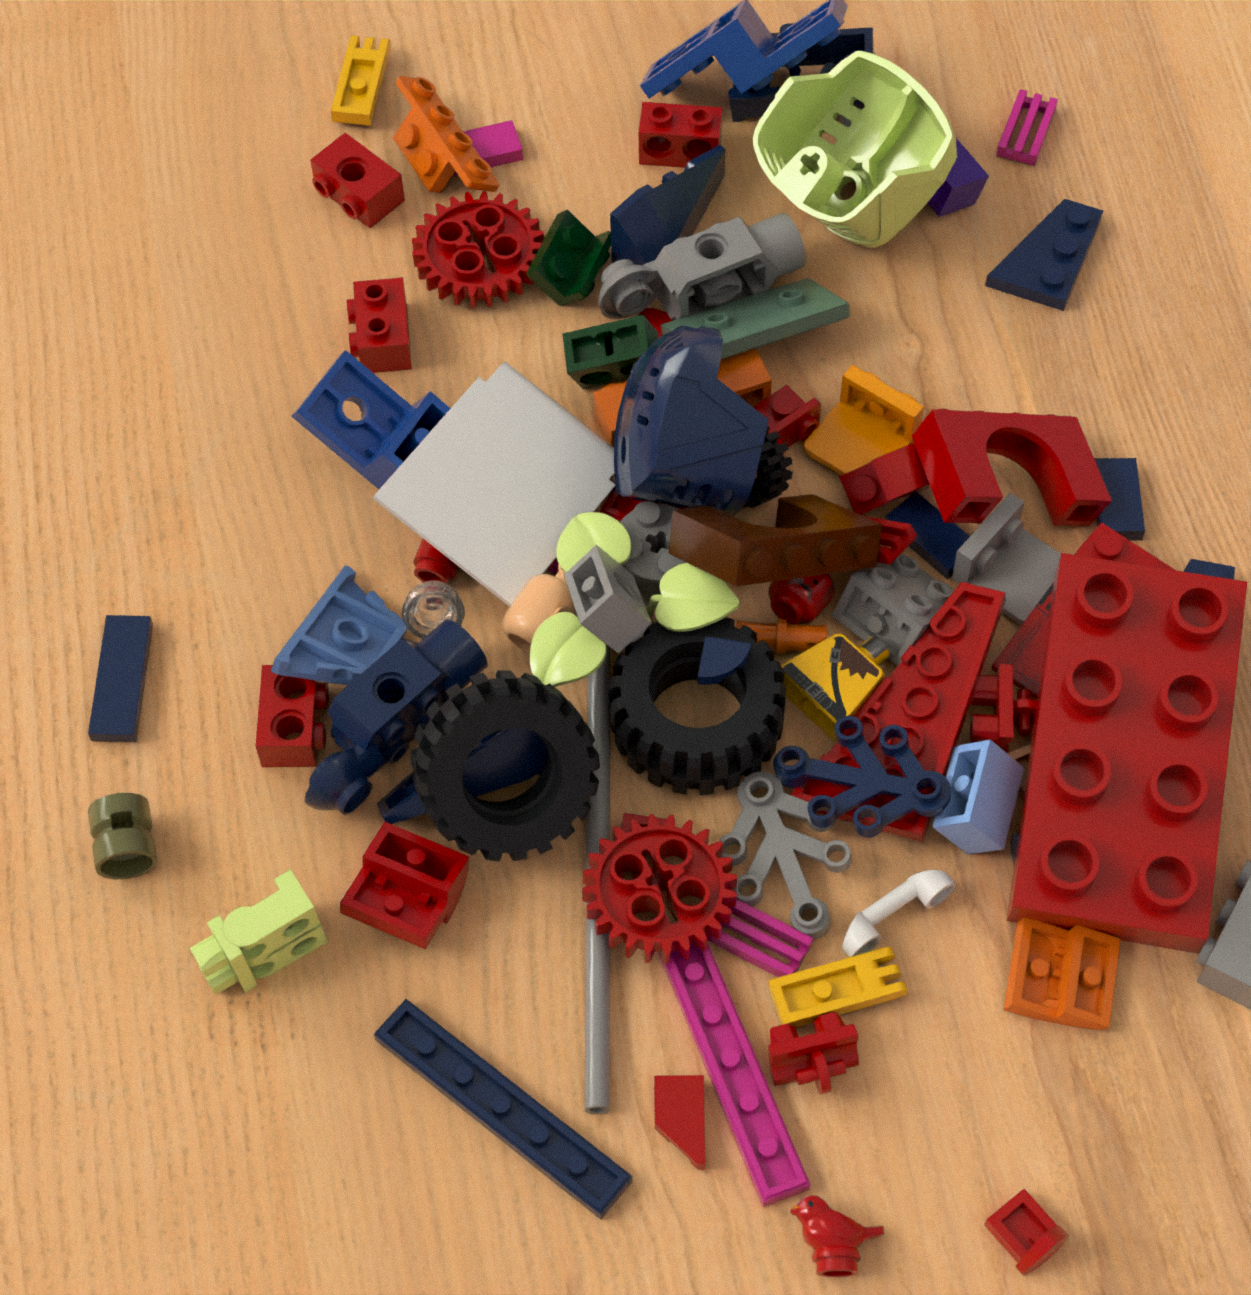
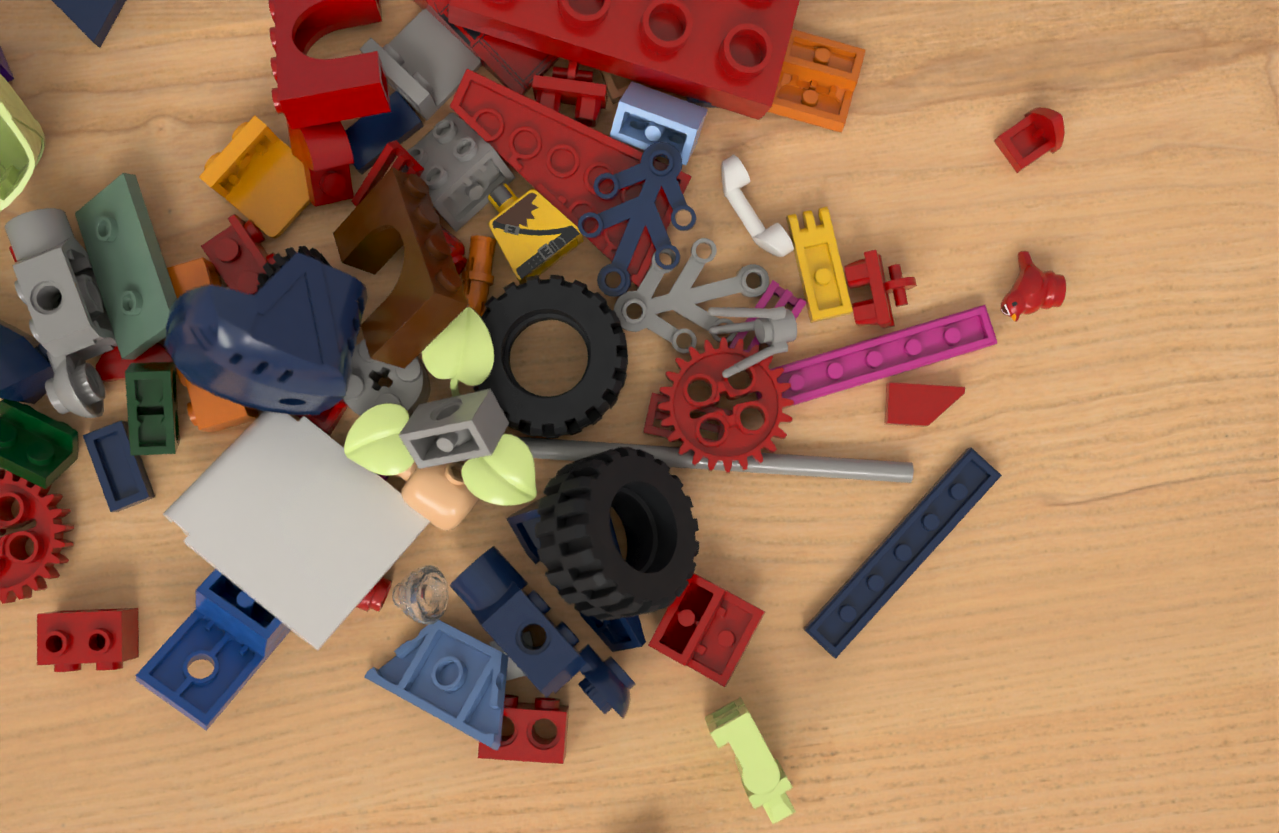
camera: 85 degrees left, 25 degrees up
(543, 340) = (119, 473): none -> dark blue tile
(721, 659) = (526, 328): dark blue tile -> none
(756, 924) = (772, 327): none -> light grey plant

